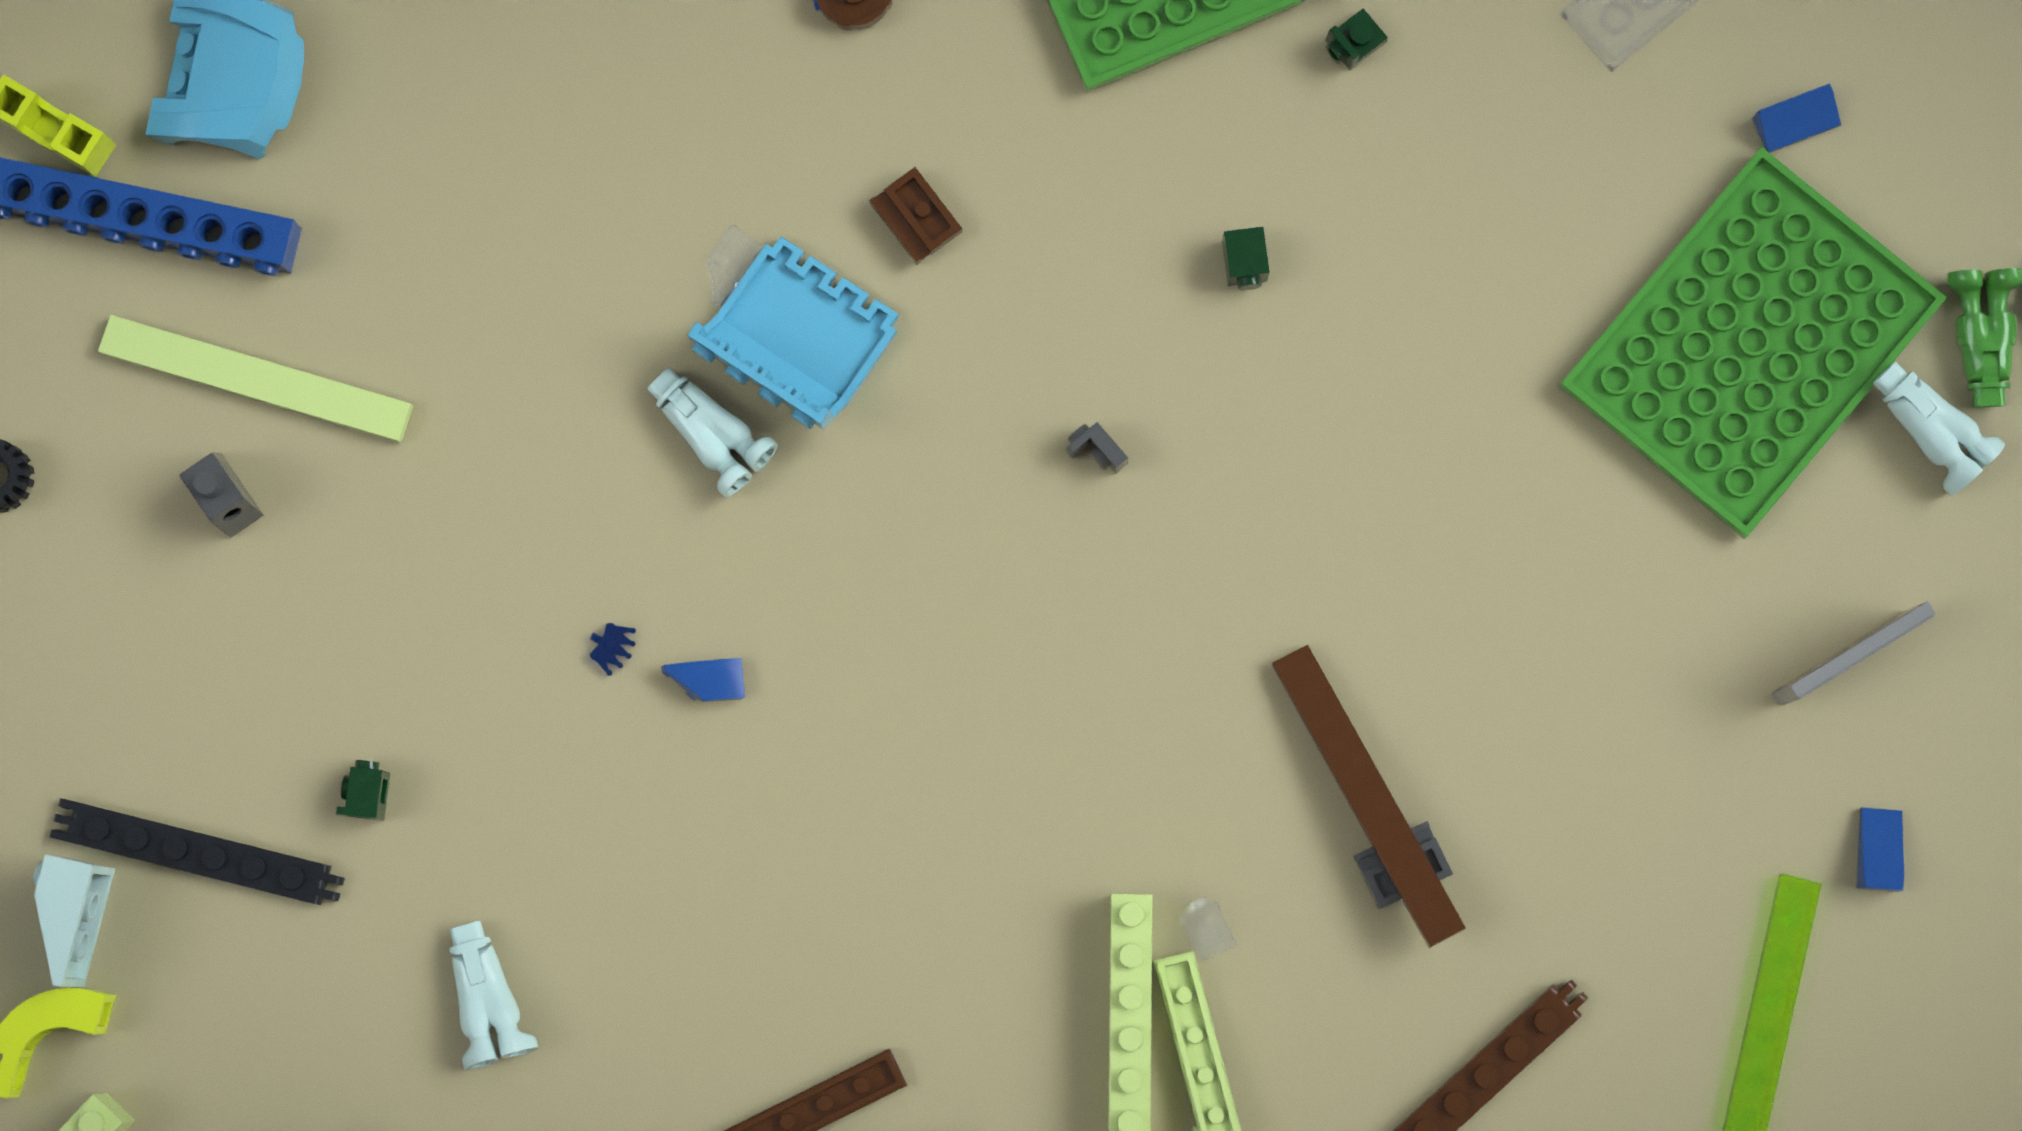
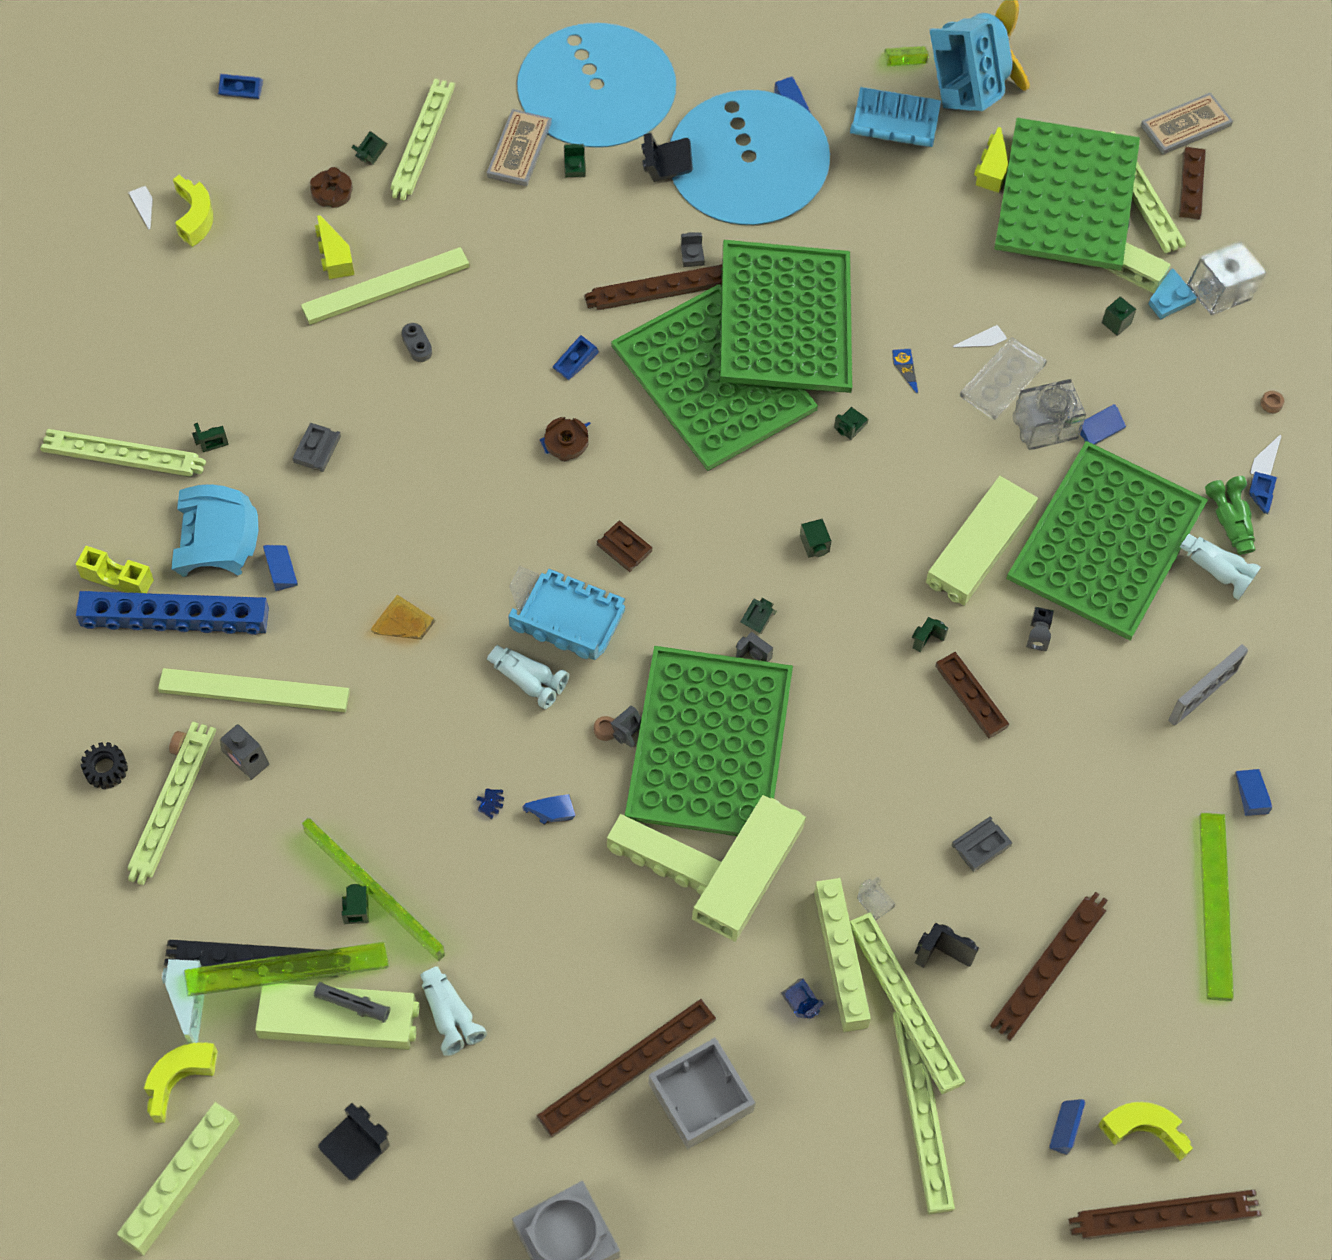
camera: 15 degrees left, 20 degrees down
(93, 559) = (170, 803): none -> yellowish green hinge
(118, 457) = (176, 742): none -> medium nougat tile
(232, 893) = (285, 969): none -> clear neon green tile
(307, 976) = (296, 1015): none -> yellowish green brick
(329, 156) = (280, 566): none -> blue slope
(341, 977) = (362, 1006): none -> dark grey pin
(396, 770) = (380, 895): none -> clear neon green tile
(519, 293) = (403, 620): none -> clear yellow wing
(823, 547) = (603, 728): none -> medium nougat tile
(856, 552) = (626, 725): none -> dark grey bracket
(897, 809) = (661, 854): none -> yellowish green brick
(990, 604) = (708, 740): none -> bright green plate
(1006, 852) = (748, 868): none -> yellowish green brick
(1051, 1083) = (802, 999): none -> clear blue bracket
(1119, 384) = (758, 614): none -> dark green bracket
(1271, 1032) = (945, 940): none -> black bracket
(1368, 797) = (954, 808): reddish brown tile -> none
(1389, 469) = (930, 627): none -> dark green bracket
(1448, 594) = (972, 695): none -> reddish brown plate
(1531, 309) = (981, 540): none -> yellowish green brick
(1599, 479) = (1040, 633): none -> dark grey leg
(1706, 88) = (1049, 414): none -> clear brick

